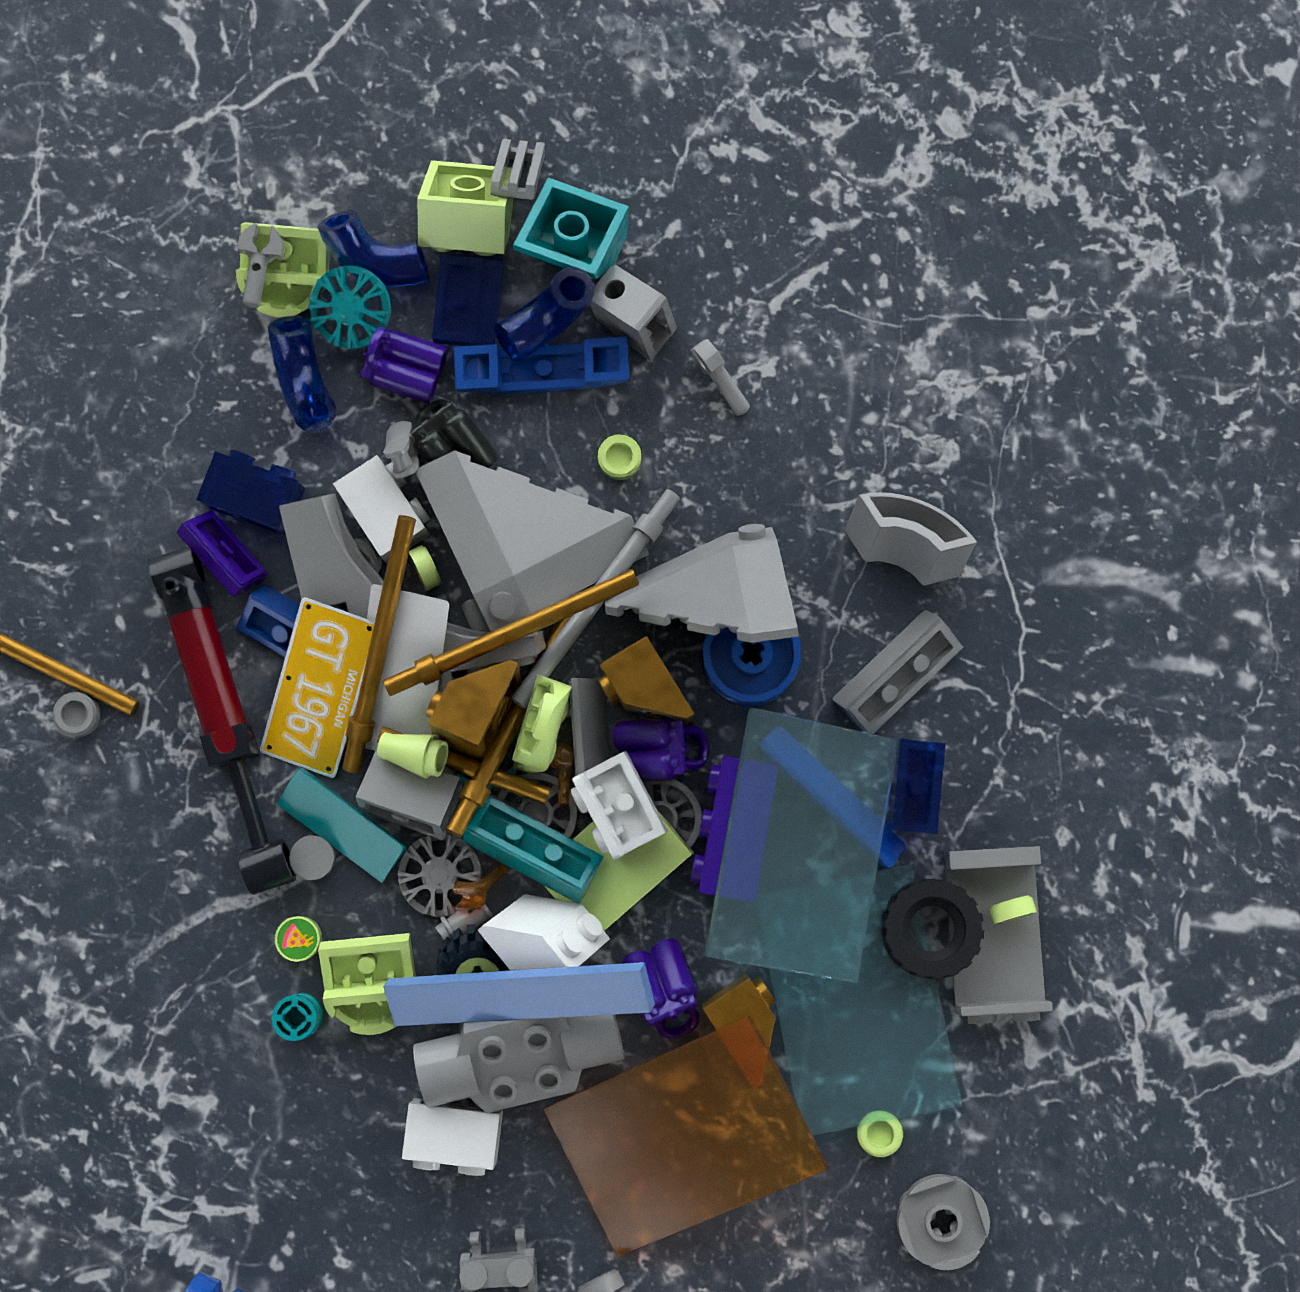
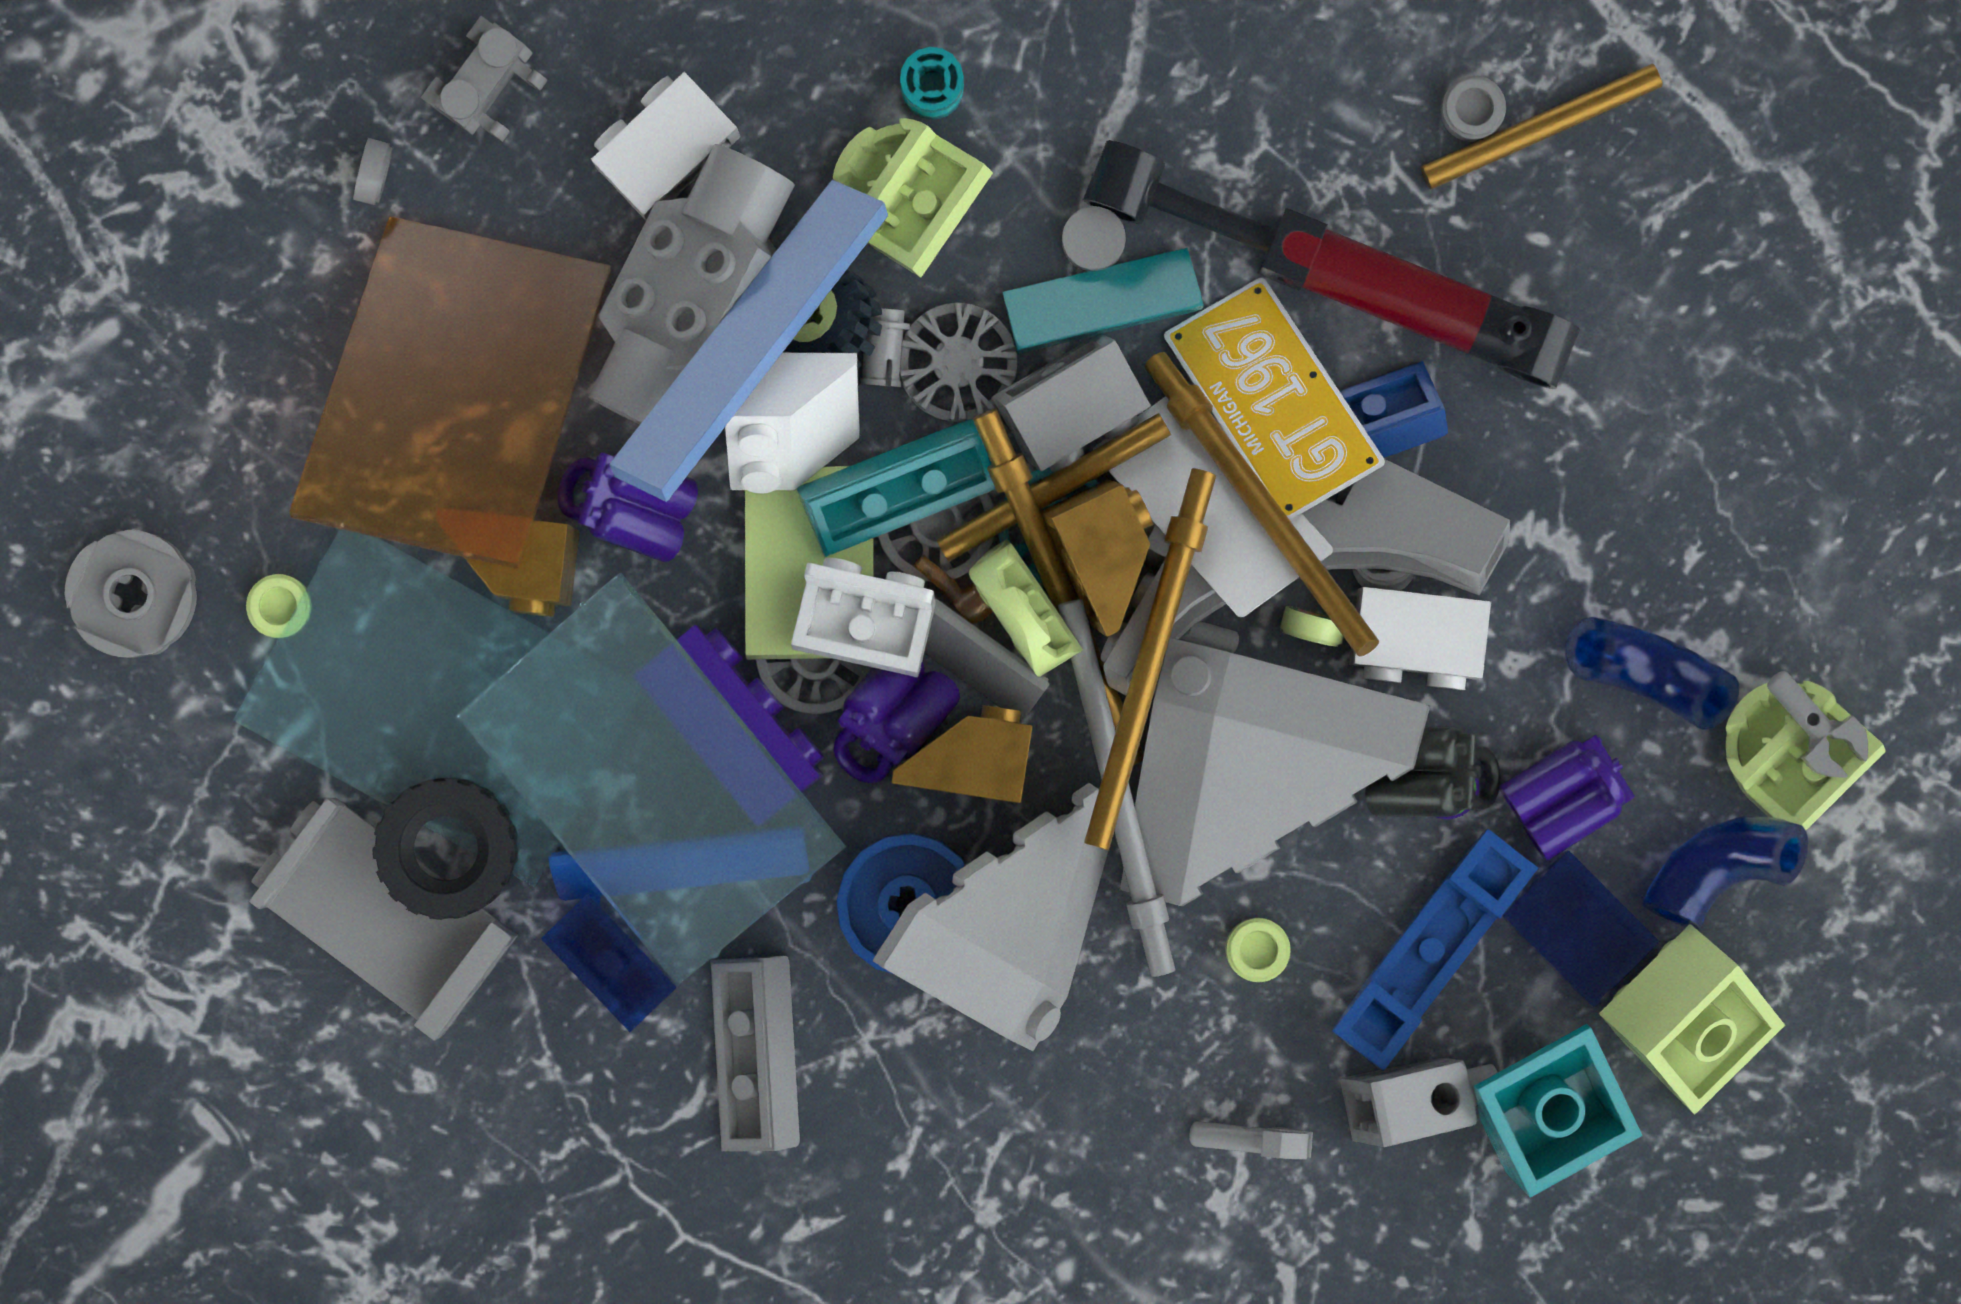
camera: 125 degrees right, 5 degrees up
(222, 553) = (1521, 414): dark purple tile -> none
(249, 491) = (1563, 502): clear blue brick -> none
(298, 938) = (1017, 151): tile -> none
(349, 306) = (1682, 787): teal wheel -> none
(401, 449) = (1467, 711): light grey bar -> none
(414, 752) = (1107, 445): yellowish green cone -> none
(475, 892) = (902, 383): clear orange hand -> none
(519, 155) = (1705, 1133): light grey tile -> none
(546, 314) = (1484, 999): clear blue cylinder -> none
(909, 535) = (893, 1194): light grey brick -> none
(1012, 910) = (391, 953): yellowish green tile -> none

